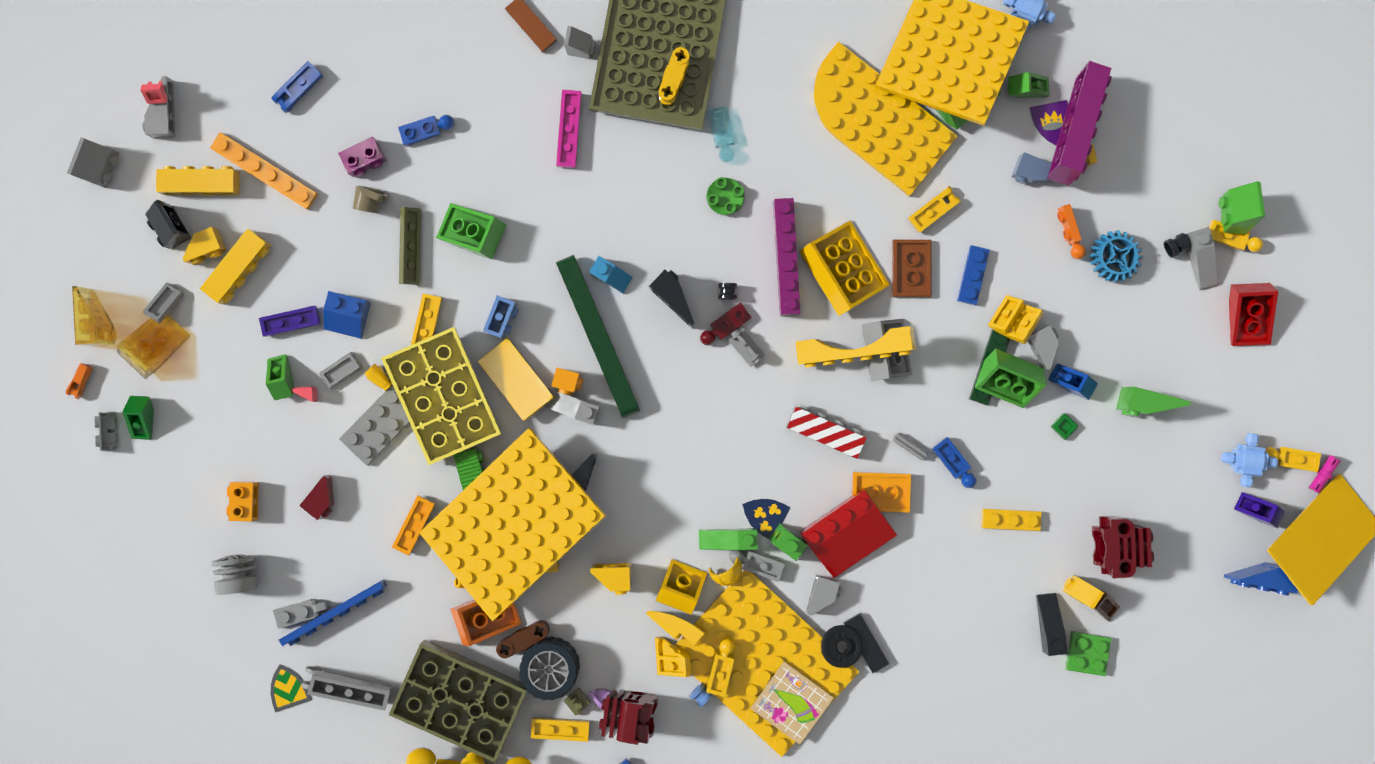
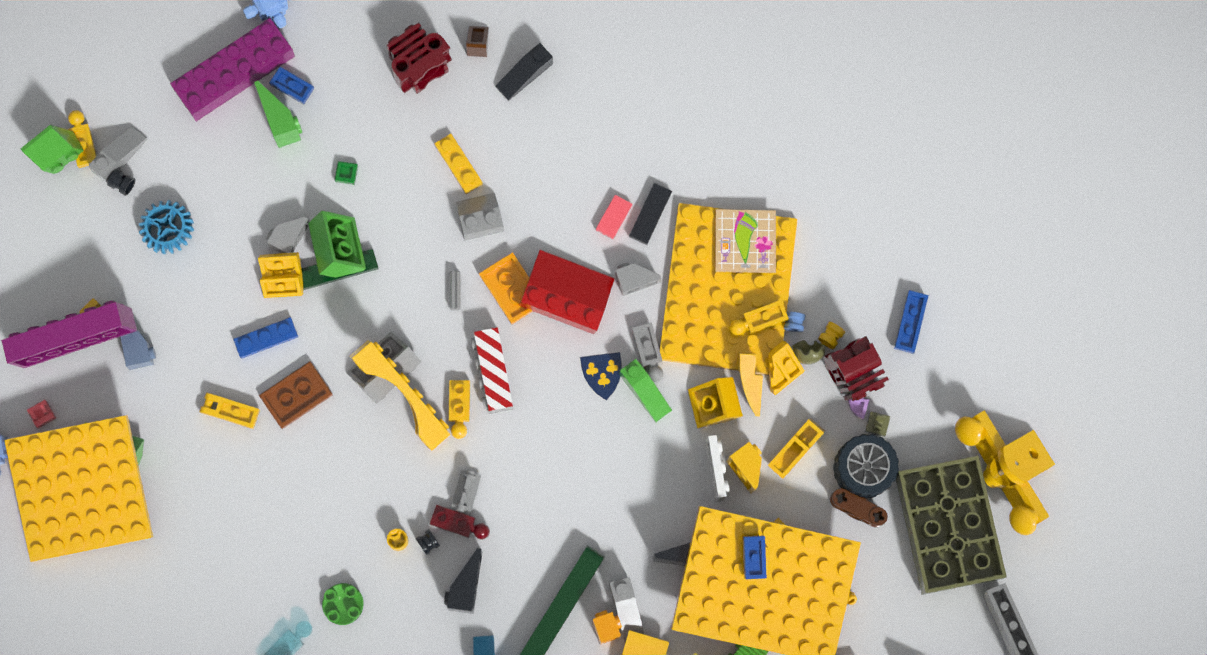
camera: 130 degrees left, 10 degrees down
(475, 624) = (875, 557): orange slope -> none
(536, 530) = (754, 557): none -> blue plate
(560, 729) = (911, 421): yellow plate -> none
(602, 624) = (796, 448): none -> yellow slope
(628, 551) = (717, 468): none -> white plate
(668, 688) = (807, 353): none -> olive hair
(671, 718) = (831, 335): none -> yellow wheel
(728, 577) = (677, 366): yellow helmet -> none
(745, 266) = (394, 538): none -> yellow wheel
(786, 257) = (361, 511): magenta brick -> none
(788, 542) = (611, 337): bright green torso -> none
(815, 387) = (459, 406): none -> yellow plate
(844, 267) = (336, 453): yellow slope -> none
(852, 652) = (672, 243): black wheel -> none
(877, 125) = (187, 512): yellow plate -> none
(883, 612) = (614, 217): none -> coral tile
(954, 462) = (442, 243): blue plate -> none
(956, 506) = (480, 216): none -> light grey slope
(1028, 85) = (61, 403): bright green slope -> none
(1030, 64) = (41, 414): none -> coral tile
(1049, 119) = (79, 365): dark purple sticker -> none
(1071, 231) = (170, 279): orange plate -> none
(1073, 381) = (302, 191): blue slope -> none
(1082, 591) = (478, 64): yellow slope -> none
(1088, 653) = (527, 26): bright green plate -> none
(1166, 431) = (291, 85): none -> blue plate
(1212, 393) = (232, 69): none -> magenta brick
(1252, 313) = (139, 81): red slope -> none

